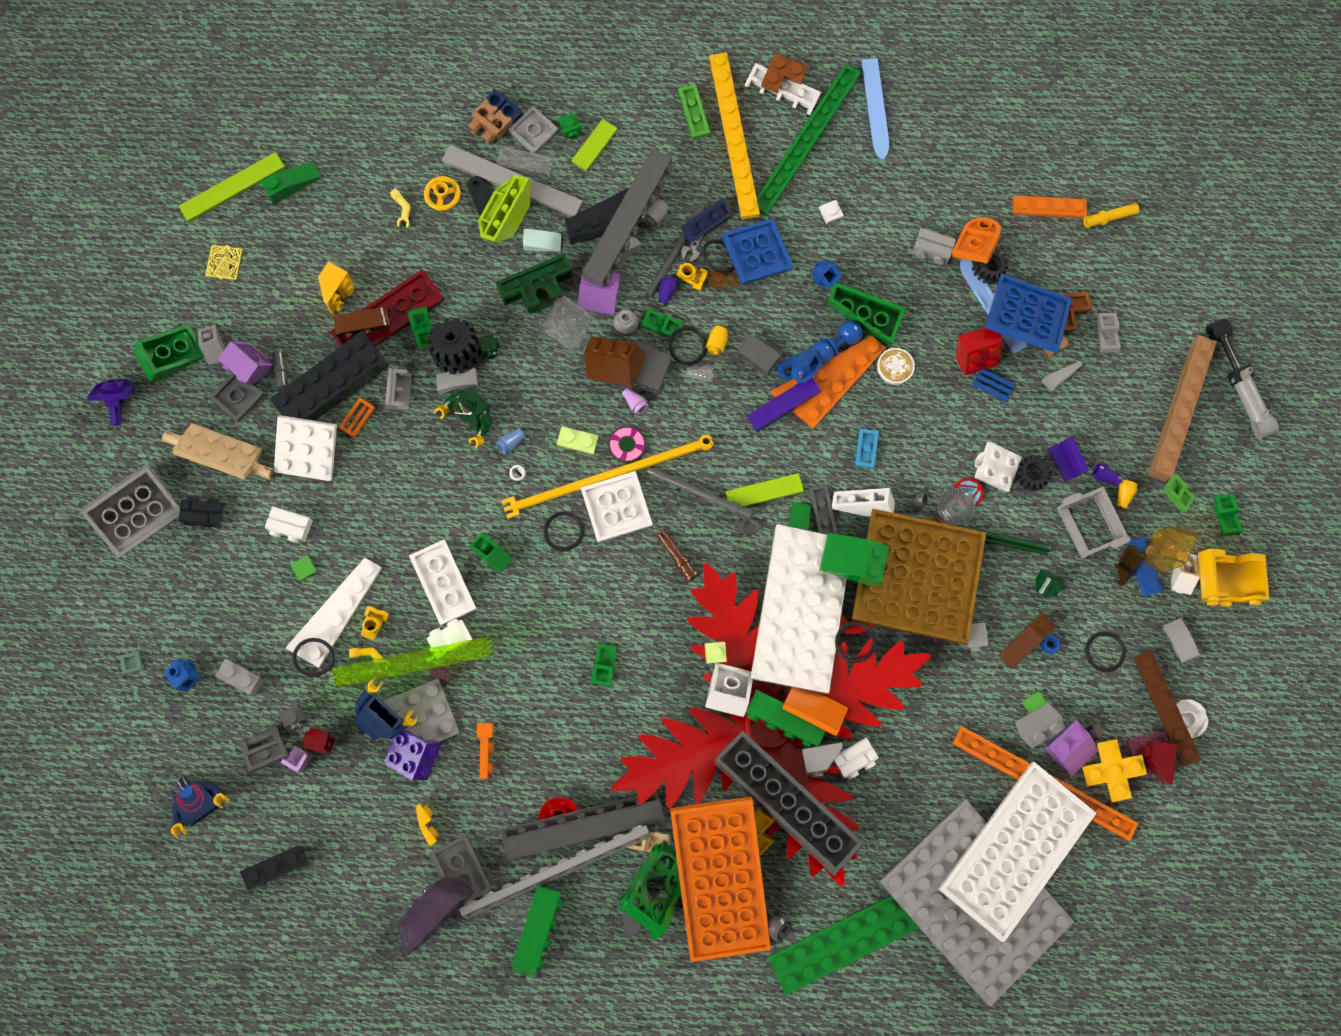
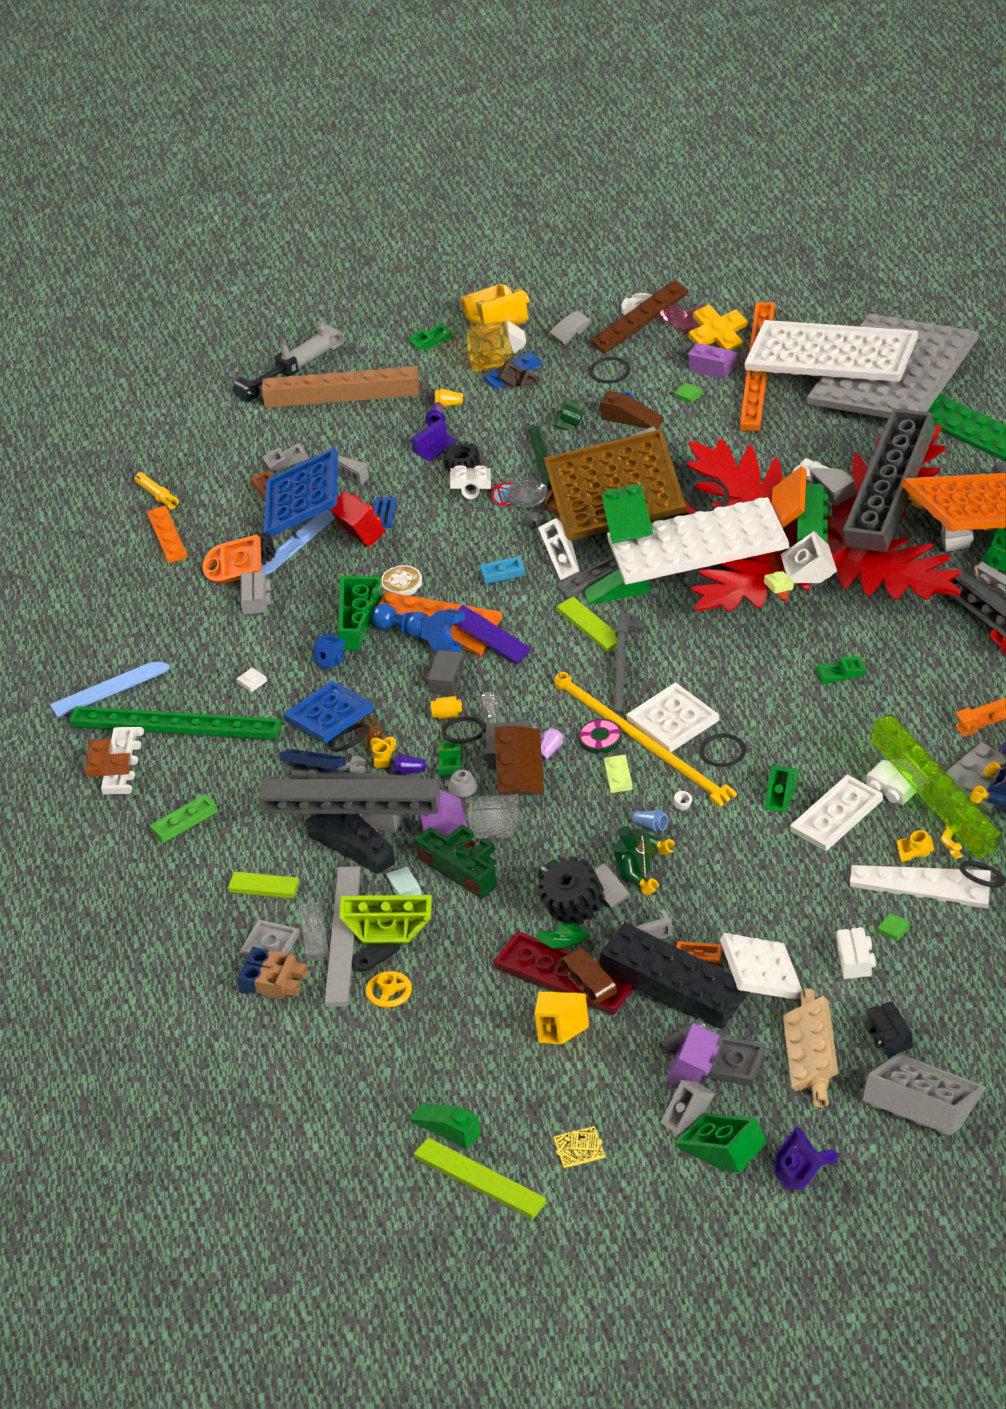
camera: 100 degrees left, 35 degrees down
(395, 194) = (414, 1021): light yellow arm -> none
(570, 126) = (251, 911): green bracket -> none
(682, 563) = (701, 651): reddish brown pin -> none
(734, 136) = (197, 776): yellow plate -> none
(1040, 725) = (706, 377): light grey brick -> none
(1109, 514) = (498, 386): light grey piece -> none
(1161, 760) = (691, 298): dark red slope -> none
(1178, 493) = (429, 363): bright green slope -> none

